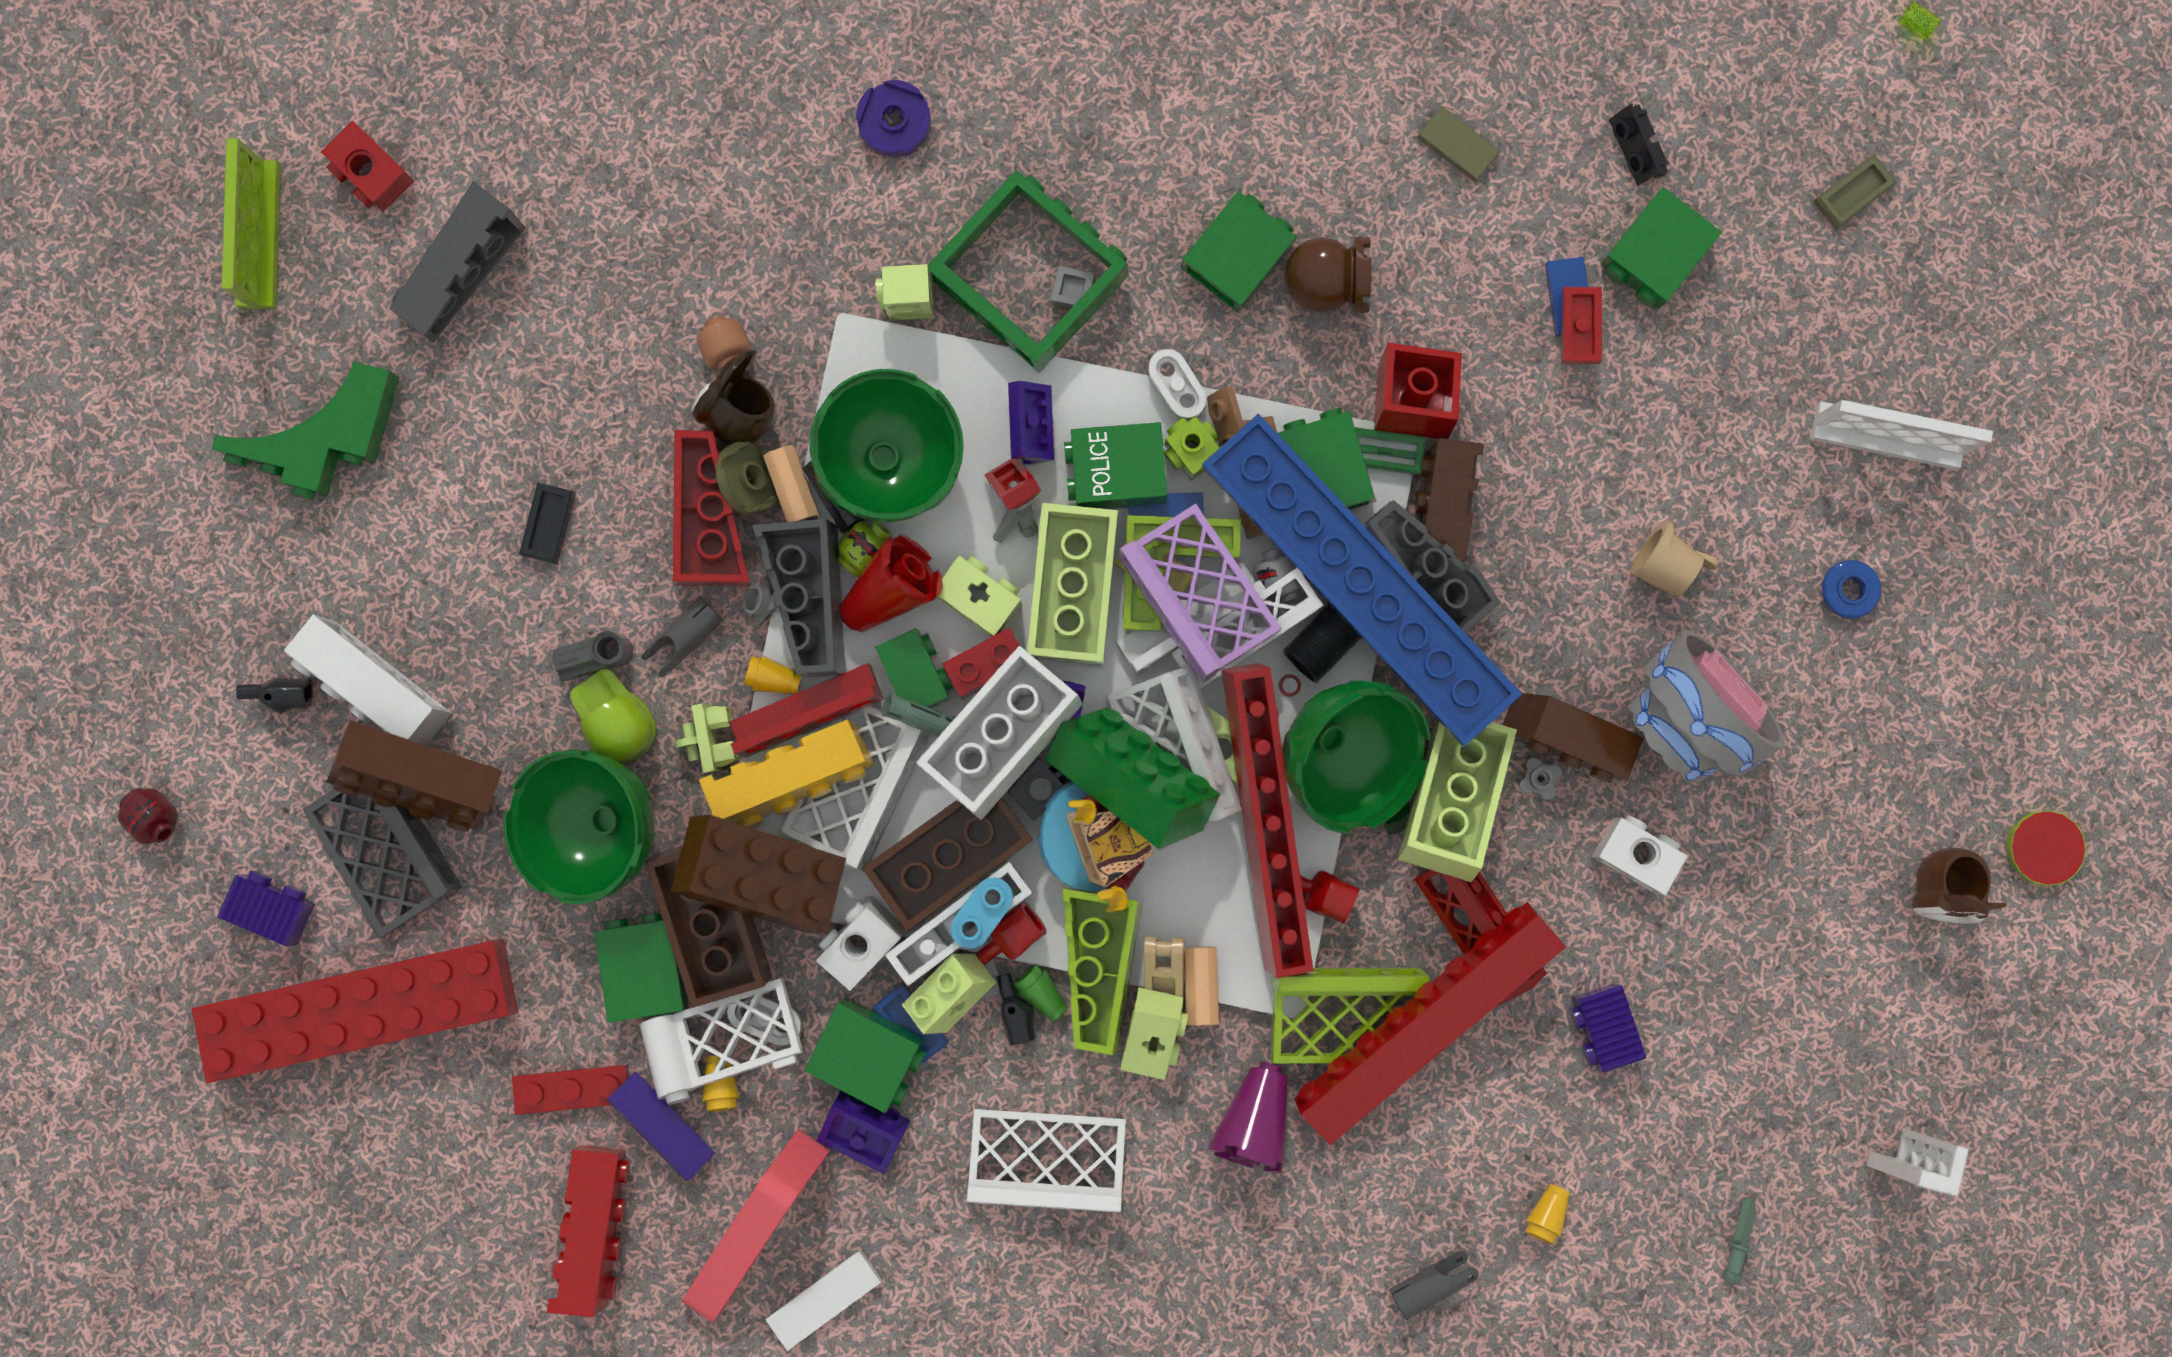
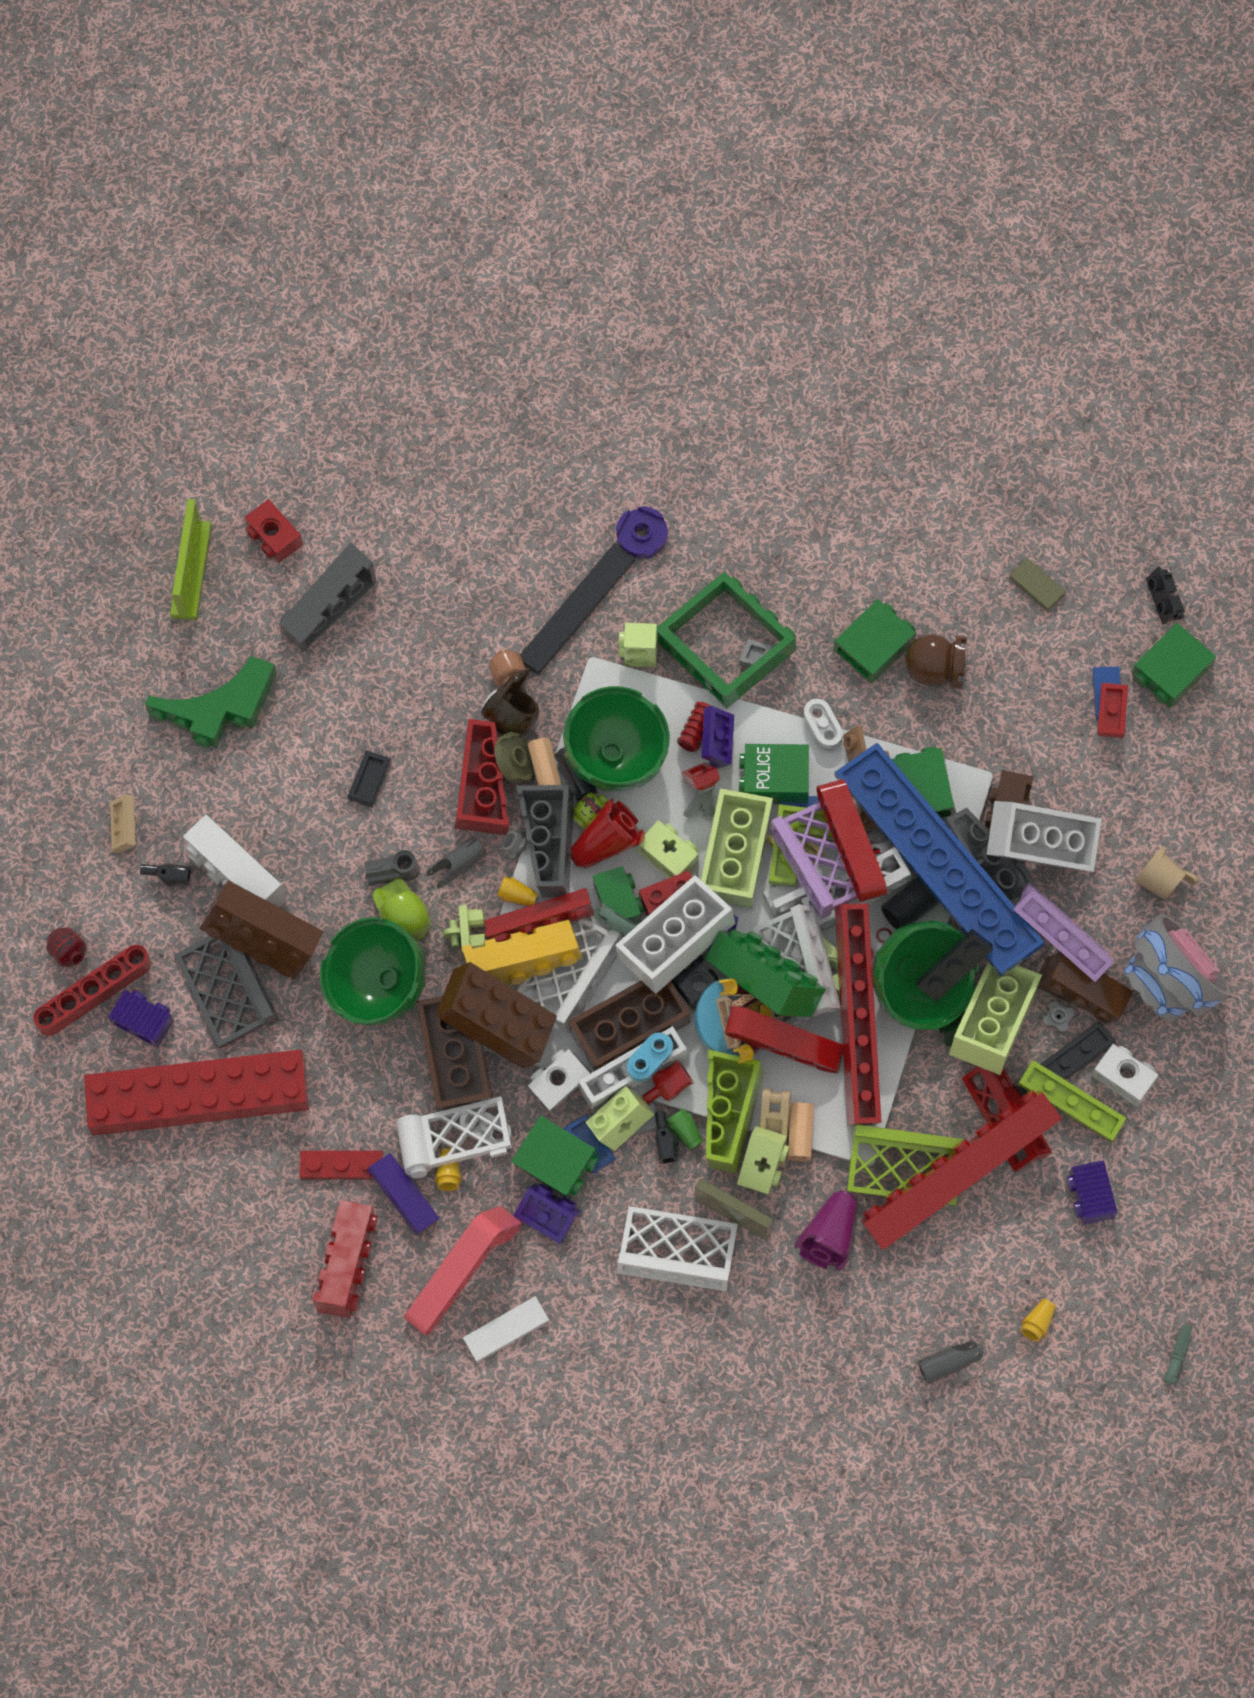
camera: 10 degrees right, 15 degrees down
(175, 879) = (86, 1002): none -> red beam
(205, 625) = (122, 823): none -> tan plate
(638, 970) = (401, 1083): green brick -> none
(813, 241) = (577, 608): none -> black tile
(996, 410) = (693, 732): none -> red piece
(1119, 1108) = (733, 1209): none -> olive tile
(1166, 868) = (784, 1039): none -> red beam
(1190, 432) = (826, 761): lime brick -> none
(1236, 568) = (851, 840): none -> red beam
(1329, 896) = (898, 1080): red piece -> none
(1393, 437) = (967, 783): green tile -> none
(1398, 737) = (954, 965): none -> black plate
(1418, 391) = (992, 742): red brick -> none
(1504, 530) = (1044, 836): none -> white brick
(1544, 669) = (1063, 932): none -> lavender fence
(1553, 843) = (1077, 1053): none -> black tile
(1569, 902) = (1073, 1101): none -> lime plate

